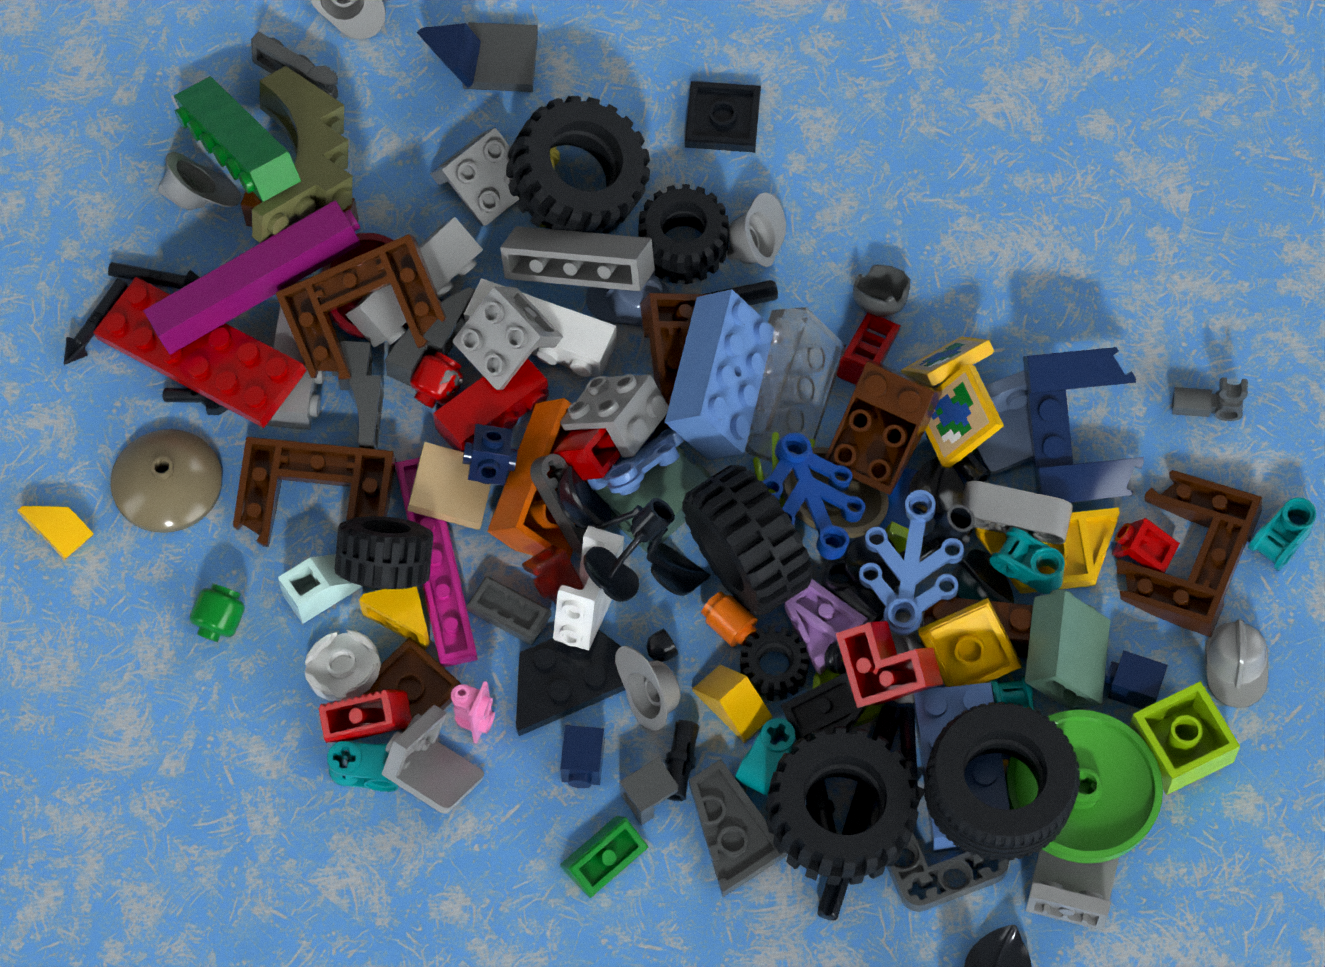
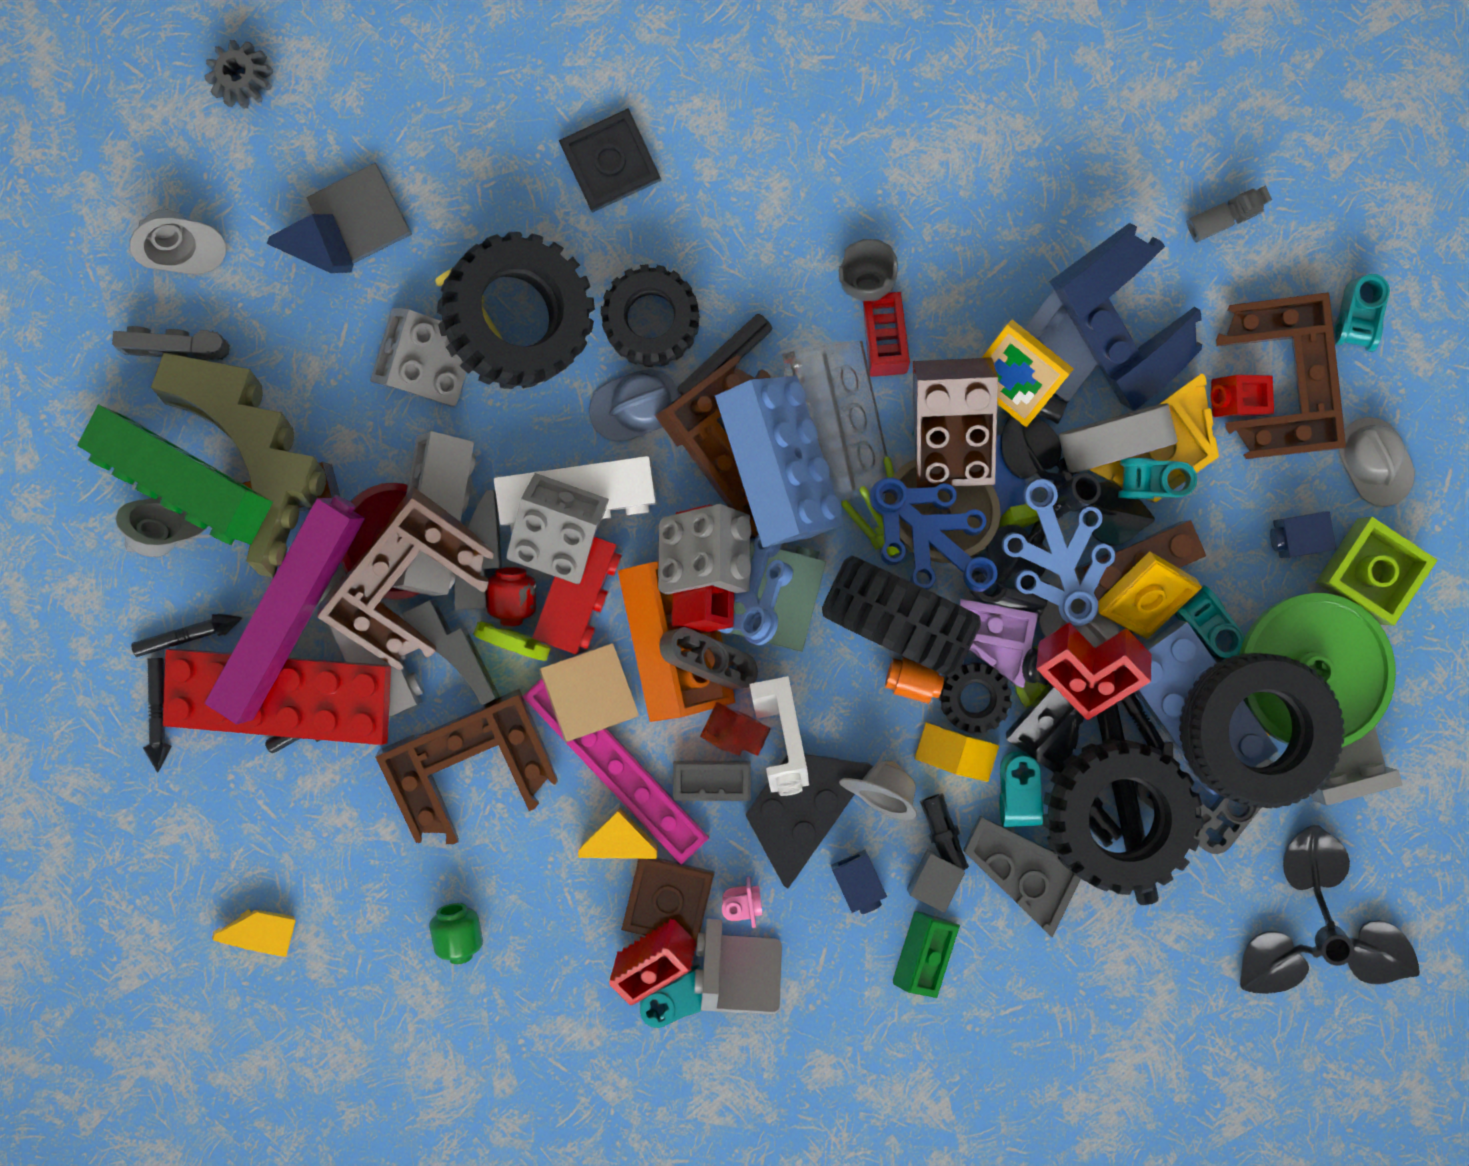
camera: 30 degrees left, 25 degrees up
(170, 498) = (350, 821): dark tan dish -> none
(314, 586) = (532, 855): light aqua slope -> none
(342, 665) = (597, 917): white tile -> none
(383, 552) = (576, 808): black tyre -> none
(413, 406) = (512, 641): none -> lime tile
(490, 454) = (611, 653): dark blue brick -> none
(577, 258) = (571, 405): light grey brick -> none
(649, 523) = (799, 730): black plant -> none
(661, 646) = (866, 738): black hinge -> none
(758, 232) = (719, 275): light grey piece -> none
(948, 360) = (972, 314): yellow tile -> none
(1067, 650) = (1234, 547): sand green brick -> none

